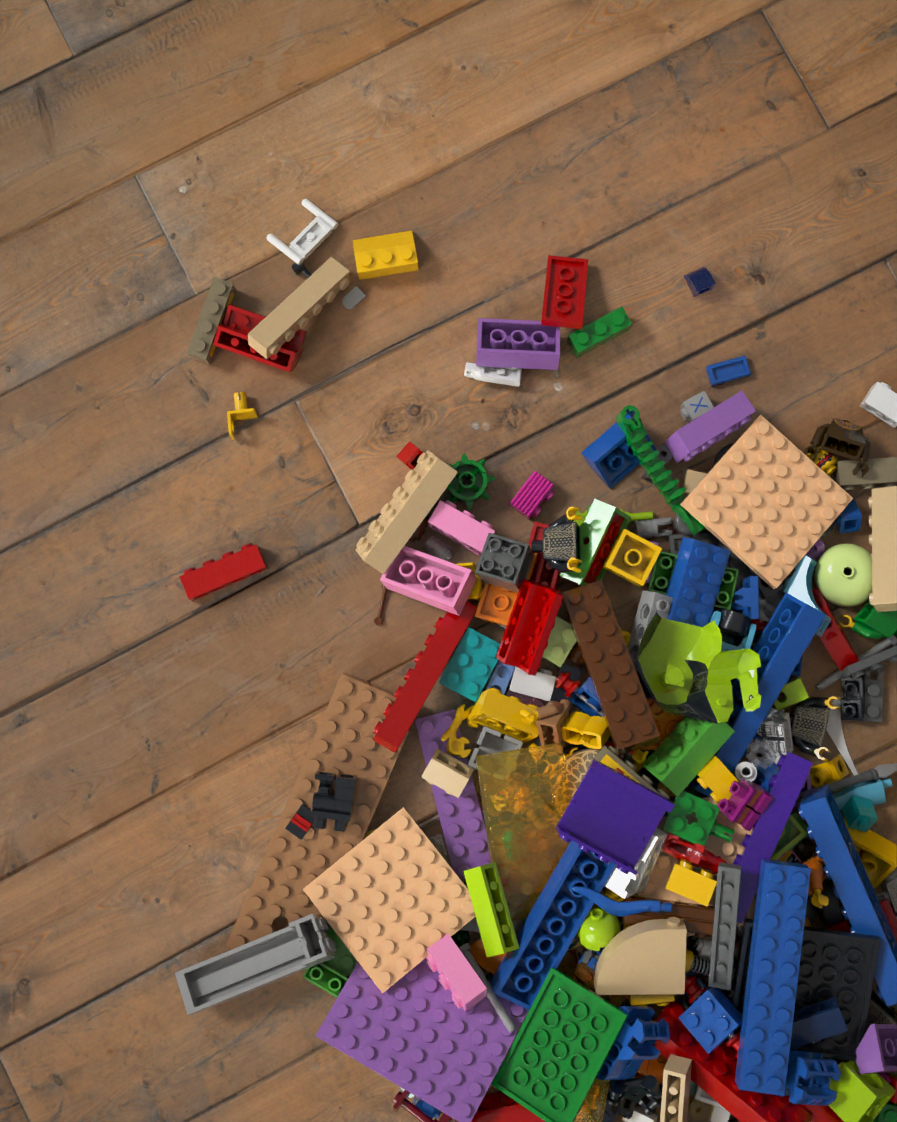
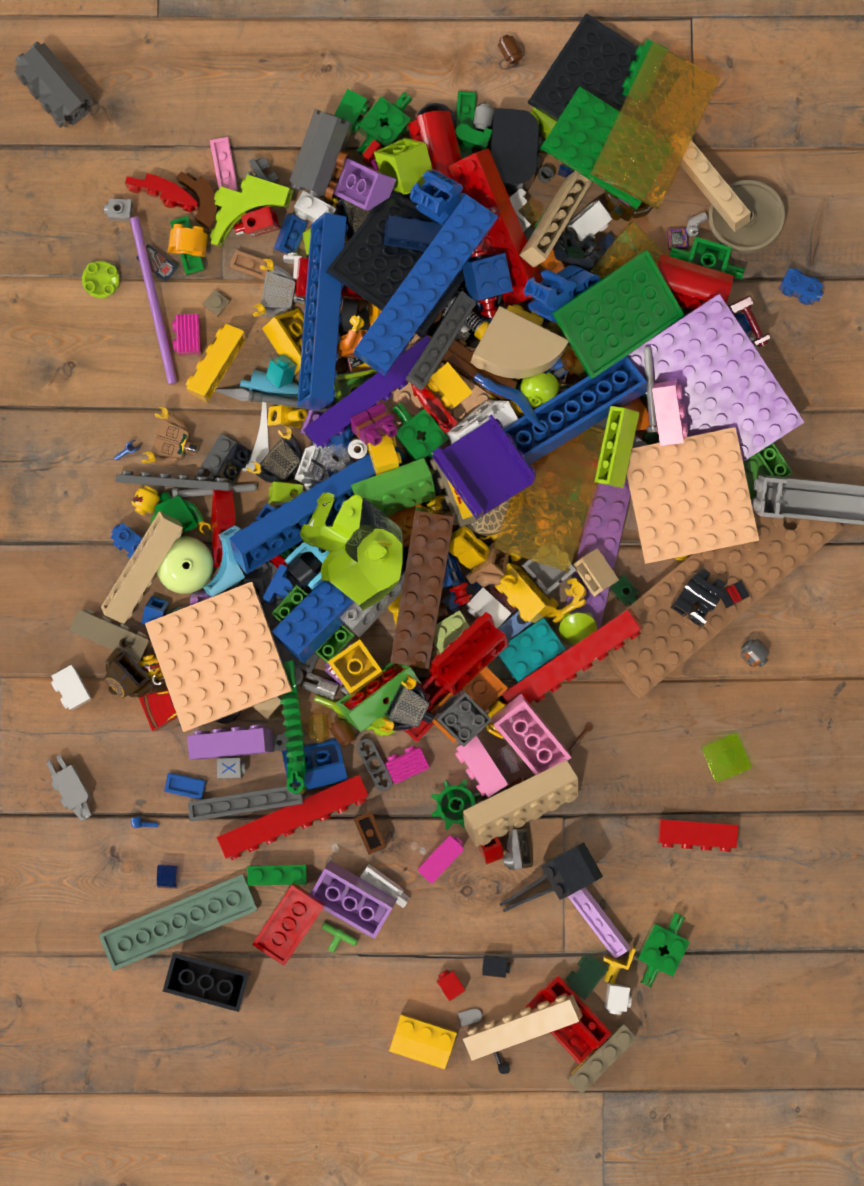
camera: 160 degrees left, 0 degrees up
(194, 437) = (675, 946): none -> green brick
(223, 380) = (617, 998): none -> white brick
(231, 660) = (726, 757): none -> clear neon green slope
(253, 775) = (754, 653): none -> dark grey head
(263, 387) = (586, 976): none -> clear green brick
(276, 443) = (599, 922): none -> lavender plate
(310, 237) = (480, 1089): white plate -> none
(328, 468) = (566, 874): none -> black slope
(353, 353) = (495, 966): none -> black brick
(385, 315) = (450, 984): none -> red brick
(385, 468) = (518, 850): none -> flat silver slope
(418, 770) = (617, 591): none -> dark green brick
(437, 711) = (577, 627): none -> lime dish
(455, 418) = (441, 858): none -> dark pink arch
(511, 309) = (338, 935): none -> bright green piece
(533, 413) = (370, 833): none -> reddish brown brick
(577, 486) = (363, 754): none -> dark grey beam
(609, 494) = (343, 732): none -> reddish brown brick
(613, 200) = (207, 981): none -> black brick
(613, 393) = (291, 817): none -> red brick
(633, 487) = (318, 728): none -> clear yellow brick
(666, 244) = (178, 922): none -> sand green plate
(668, 378) = (243, 803): none -> dark grey plate
(754, 314) = (137, 823): none -> blue hand
(795, 425) = (158, 709): none -> torso
(833, 314) = (71, 788): none -> light grey hinge

